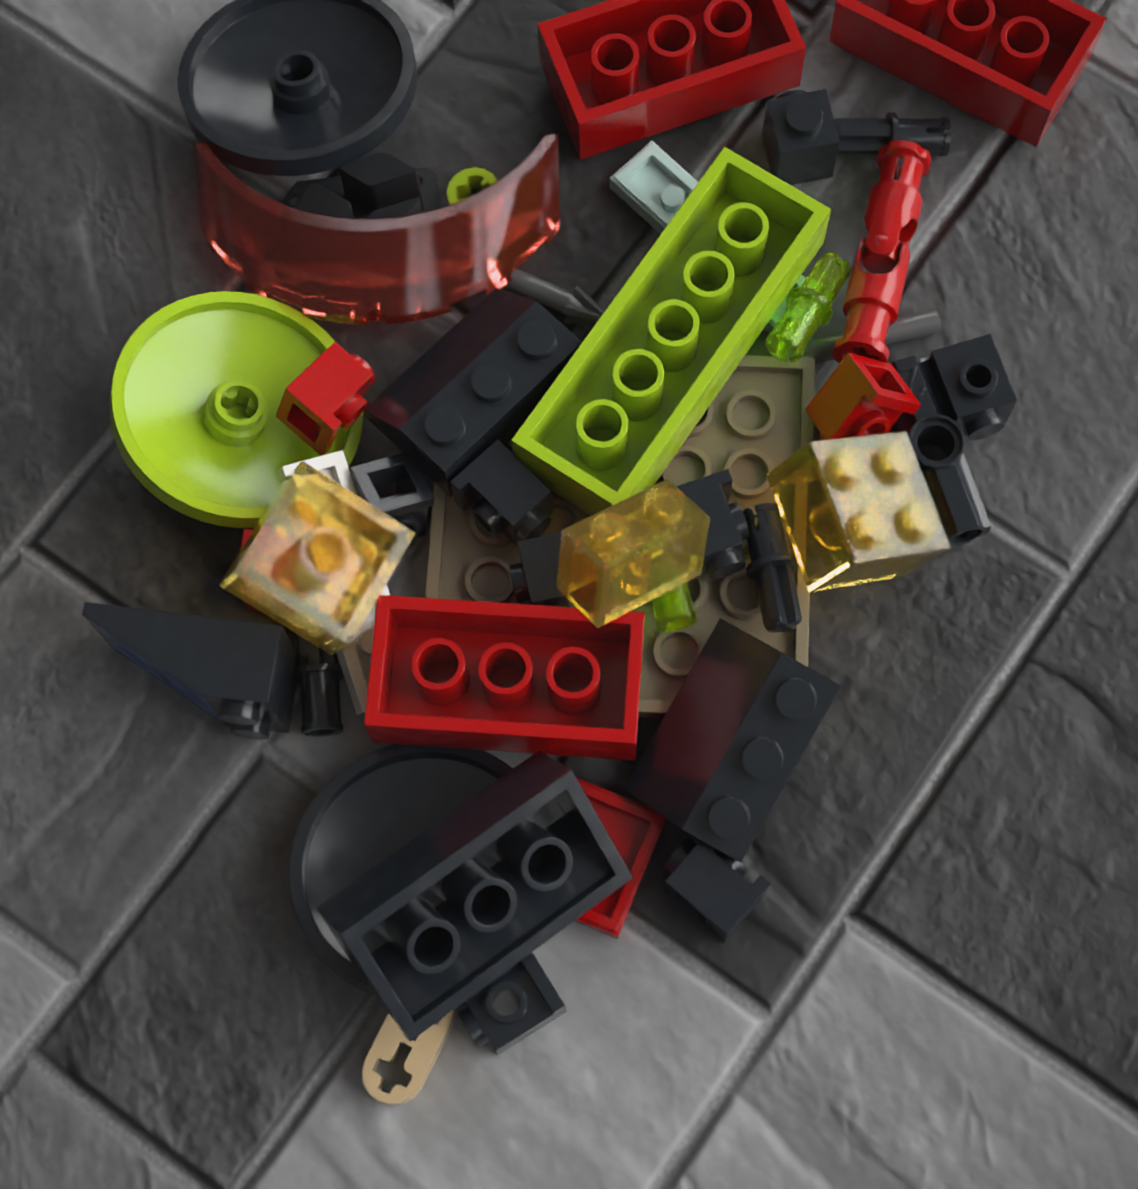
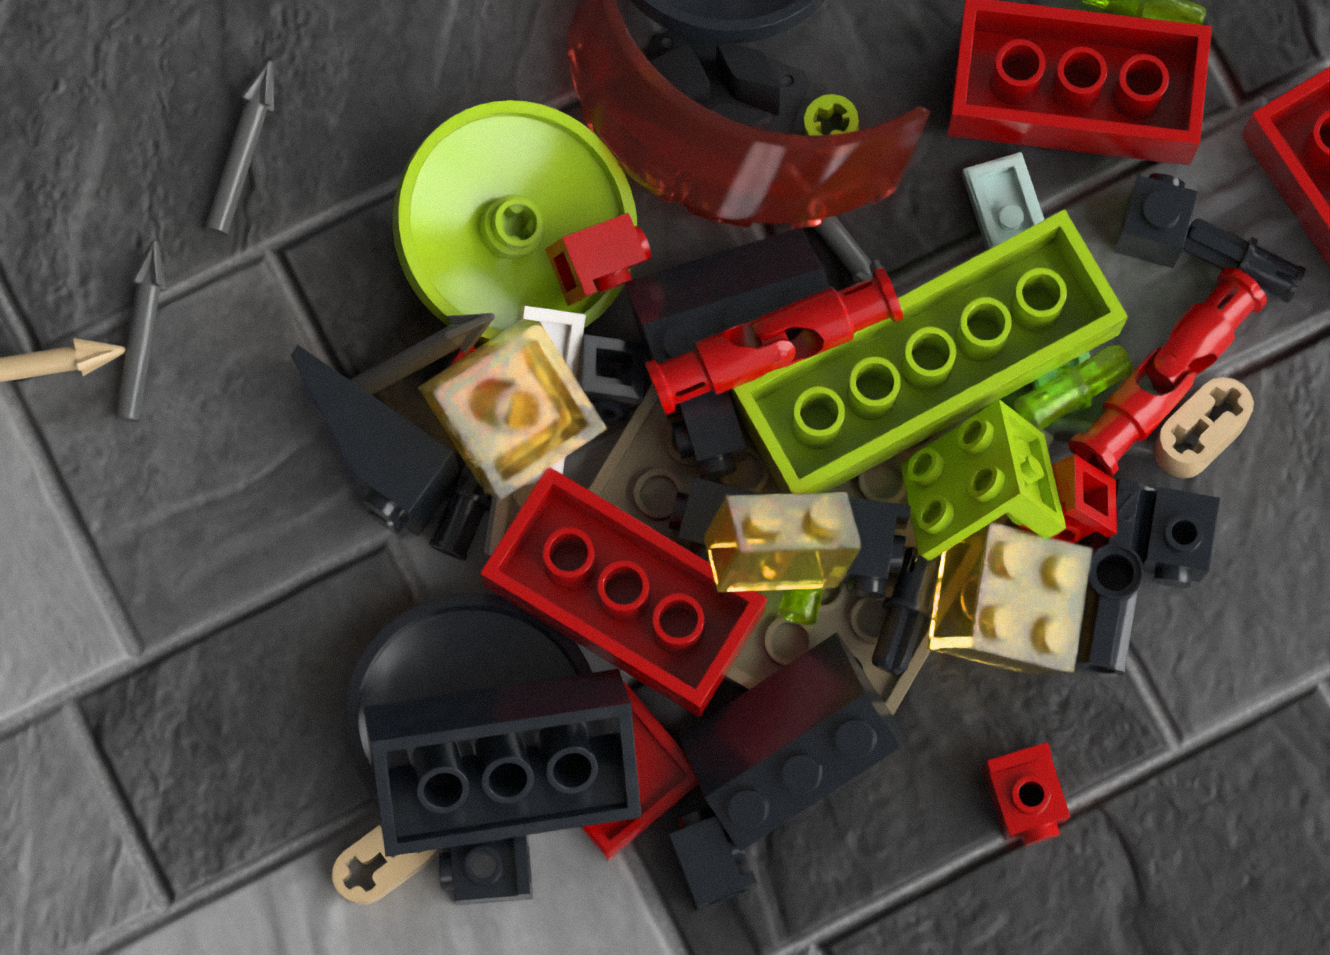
camera: 25 degrees right, 5 degrees up
(235, 521) = (461, 334): none -> dark grey piece
(523, 385) = (762, 345): none -> red piece
(773, 416) = (978, 474): none -> lime bracket
(927, 286) = (1193, 418): none -> tan beam
(941, 680) = (1006, 776): none -> red brick

